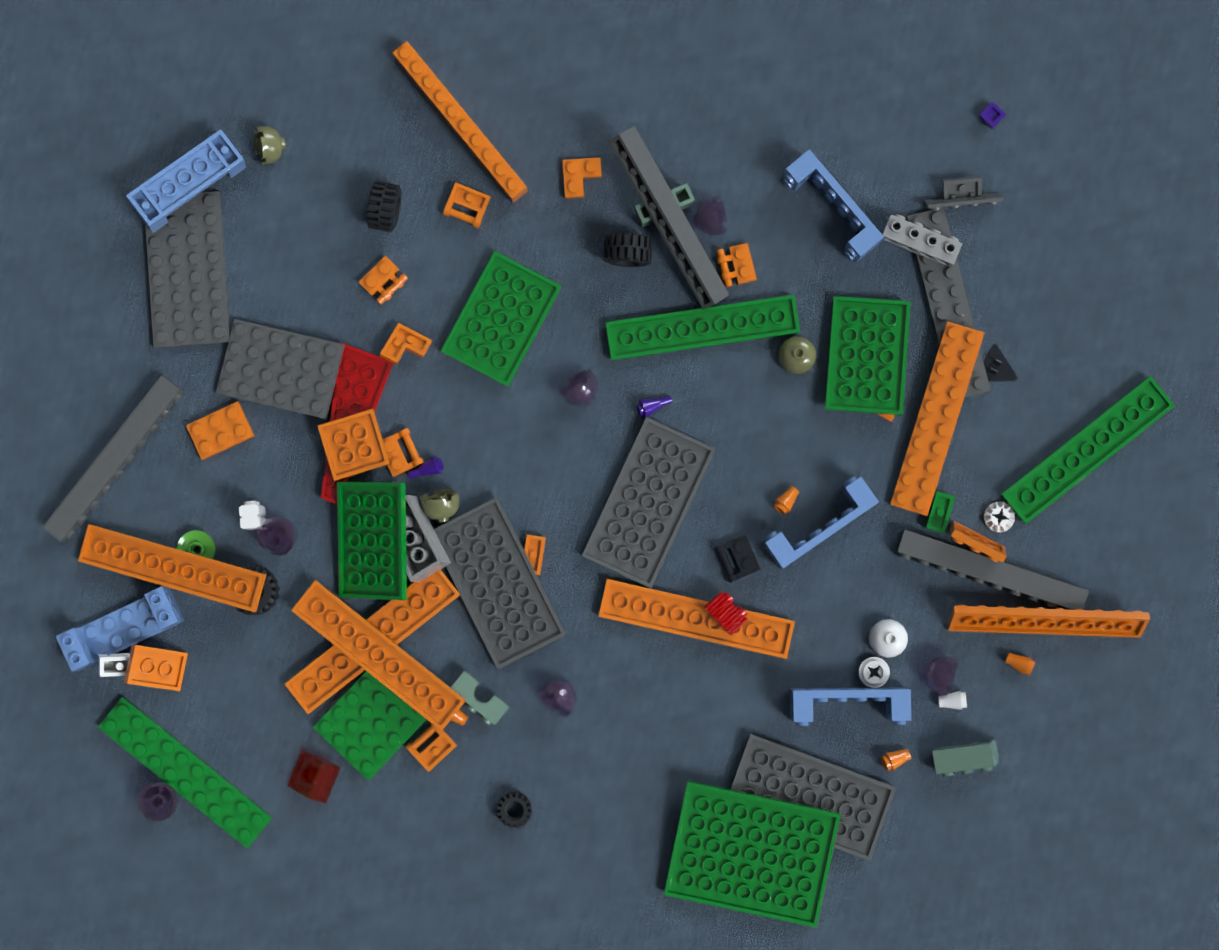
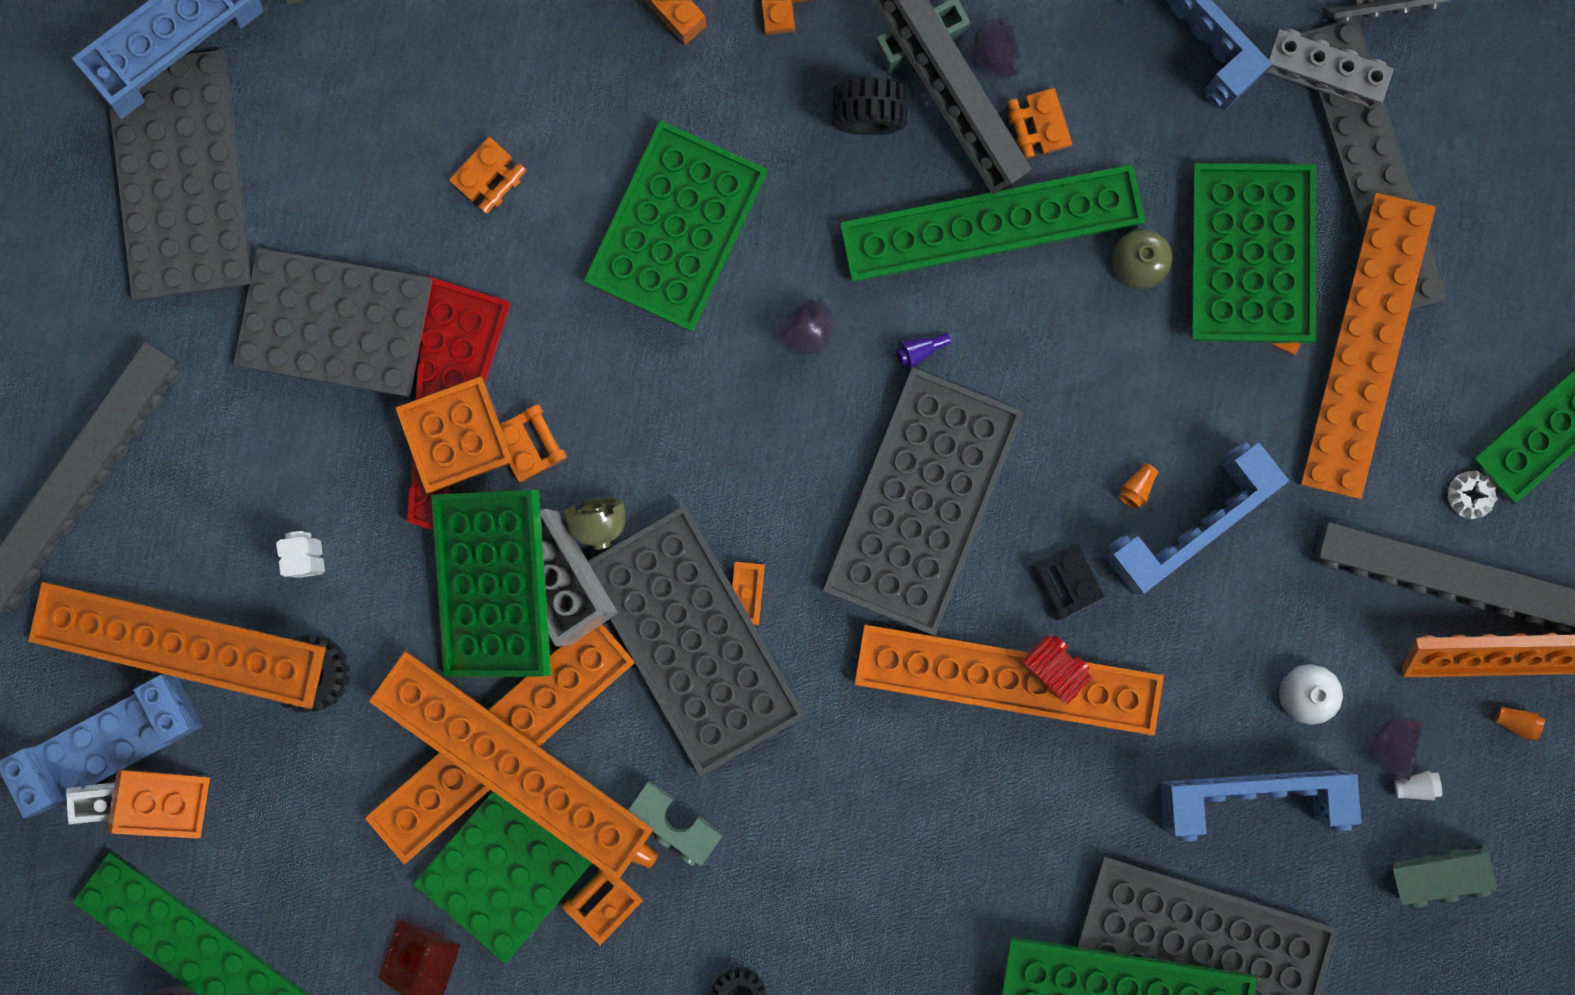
camera: 10 degrees left, 0 degrees up
(197, 538) = (216, 595): bright green dish -> none
(220, 430) = (244, 424): orange plate -> none
(277, 535) = (341, 584): clear purple cylinder -> none
(383, 206) = (482, 58): black tyre -> none
(404, 339) = (523, 266): orange plate -> none
(431, 467) = (579, 463): dark purple cone -> none
(469, 199) = (615, 42): orange plate -> none
(558, 695) = (799, 813): clear purple cylinder -> none
(883, 671) = (1305, 746): white gear -> none
(895, 759) = (1331, 885): orange cone -> none
(940, 512) = (1380, 492): green plate -> none
(977, 542) = (1444, 536): orange plate -> none
(997, 366) = (1455, 261): black piece -> none

